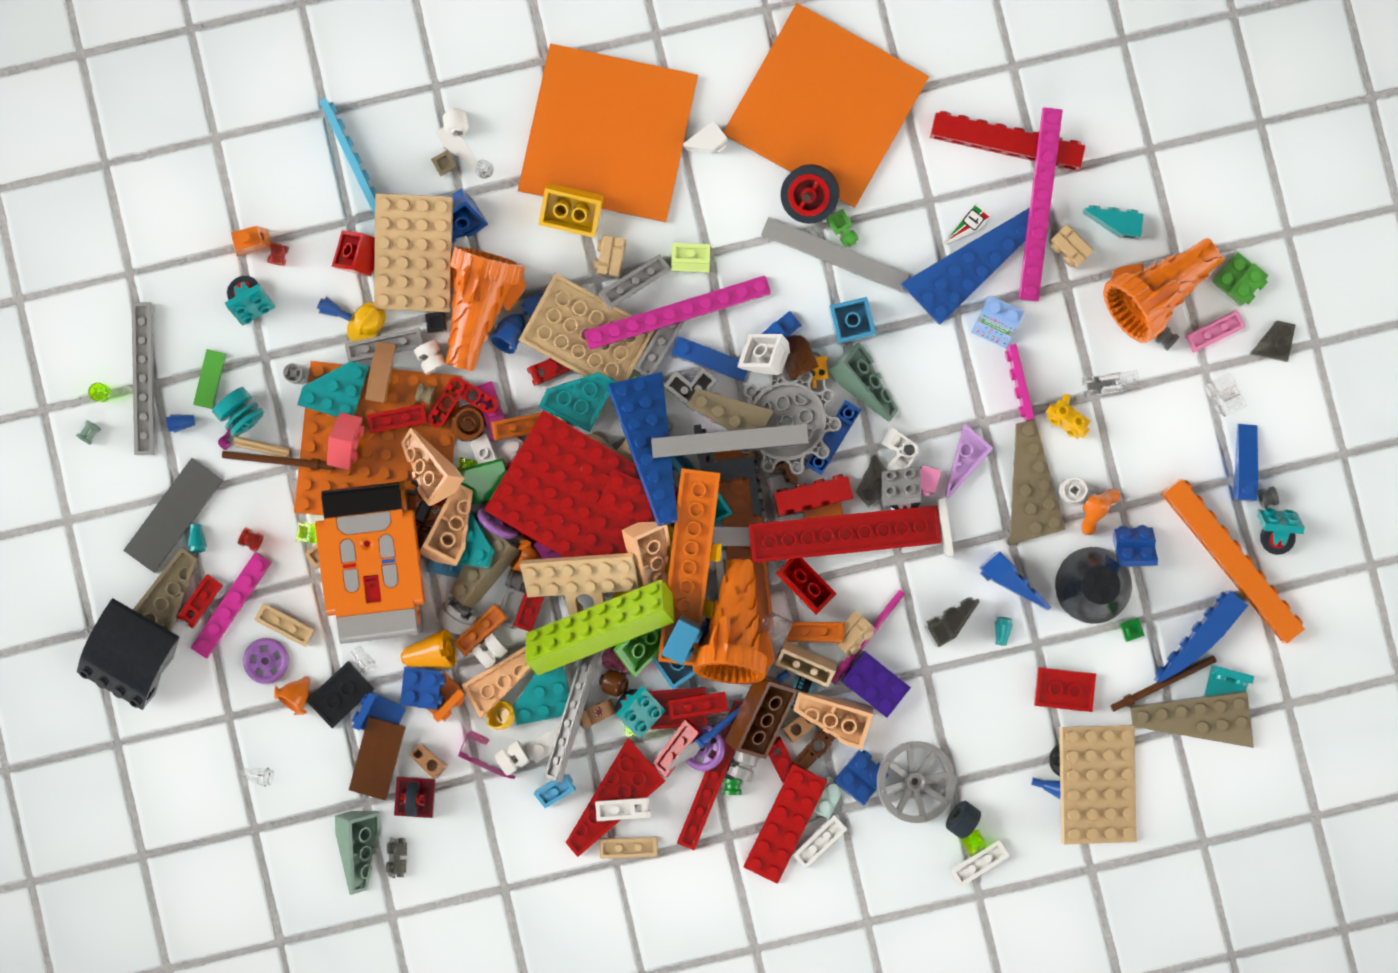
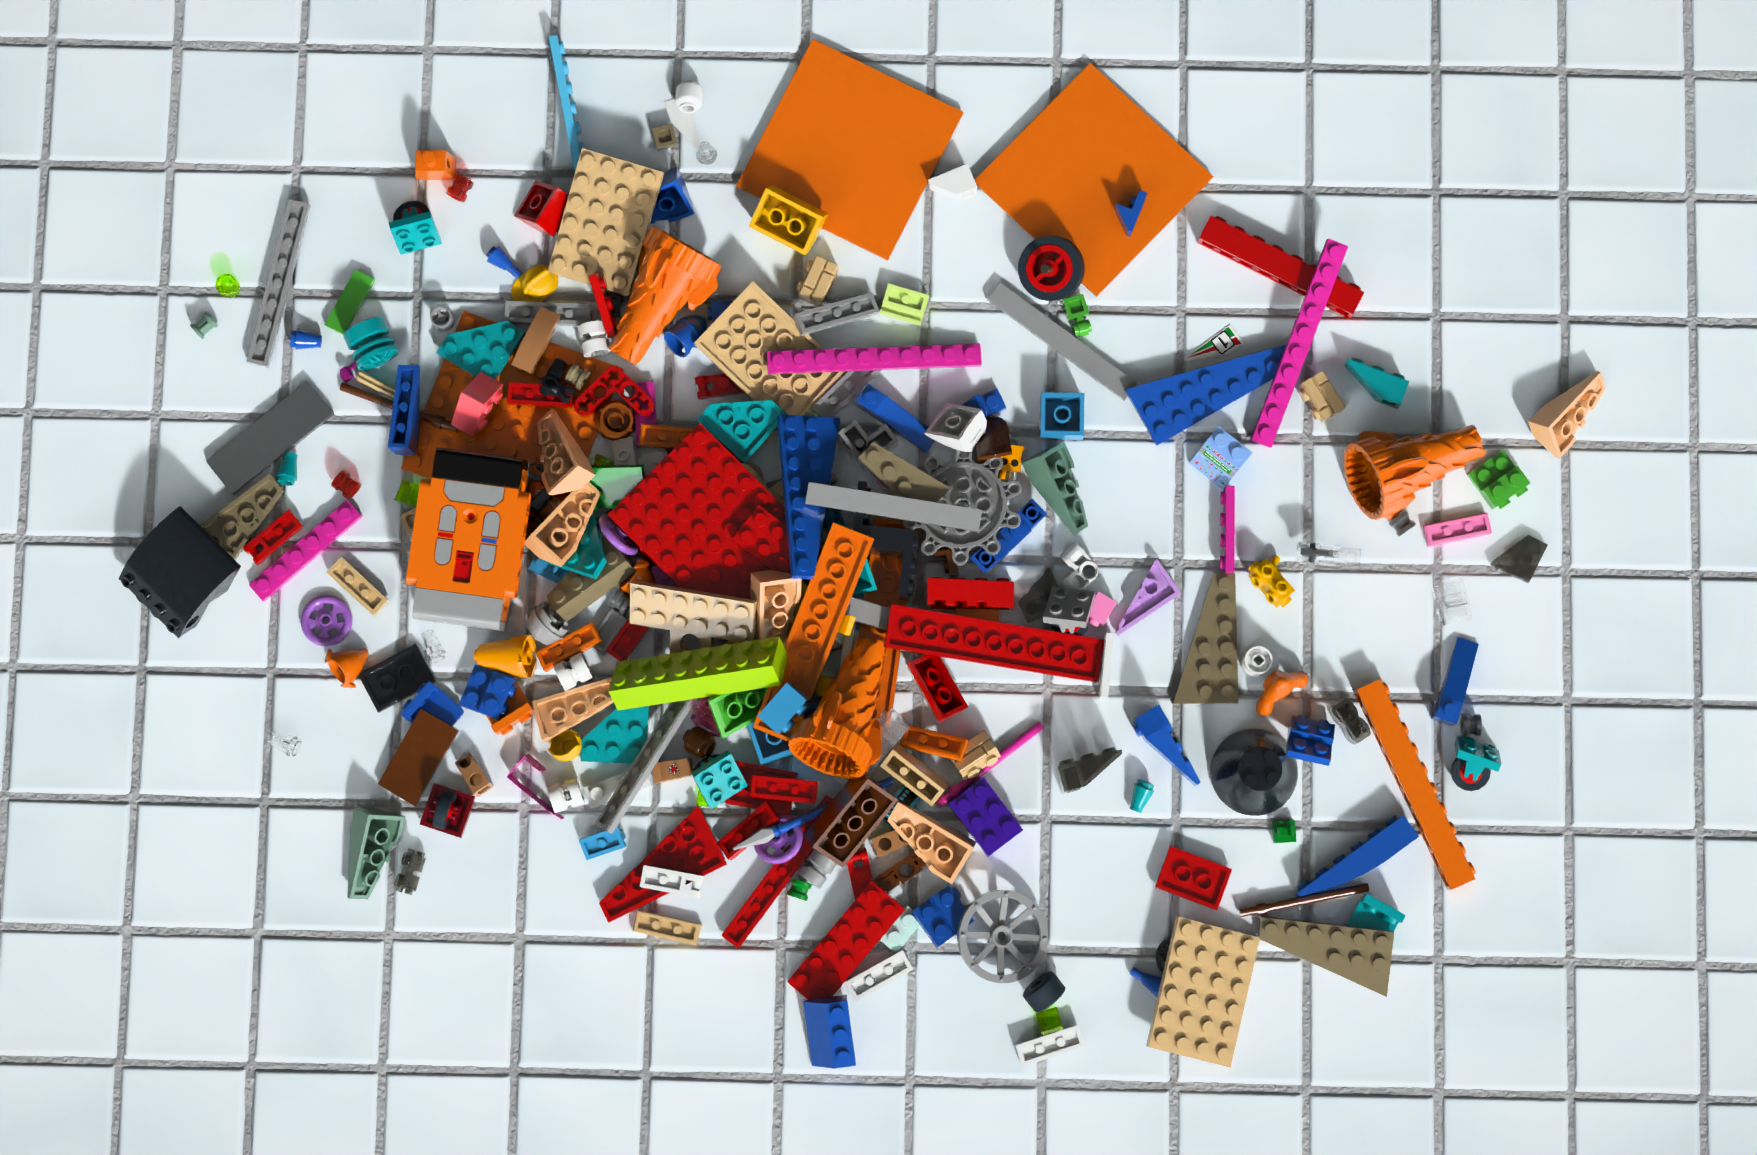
camera: 10 degrees right, 5 degrees down
(284, 462) = (405, 411): none -> blue slope
(404, 409) = (550, 382): none -> black bar
(431, 324) = (604, 303): none -> red plate
(790, 901) = (829, 1032): none -> blue slope
(866, 131) = (1127, 216): none -> blue slope
(1161, 517) = (1353, 726): none -> clear smoke brick
(1280, 211) = (1560, 418): none -> light nougat wedge

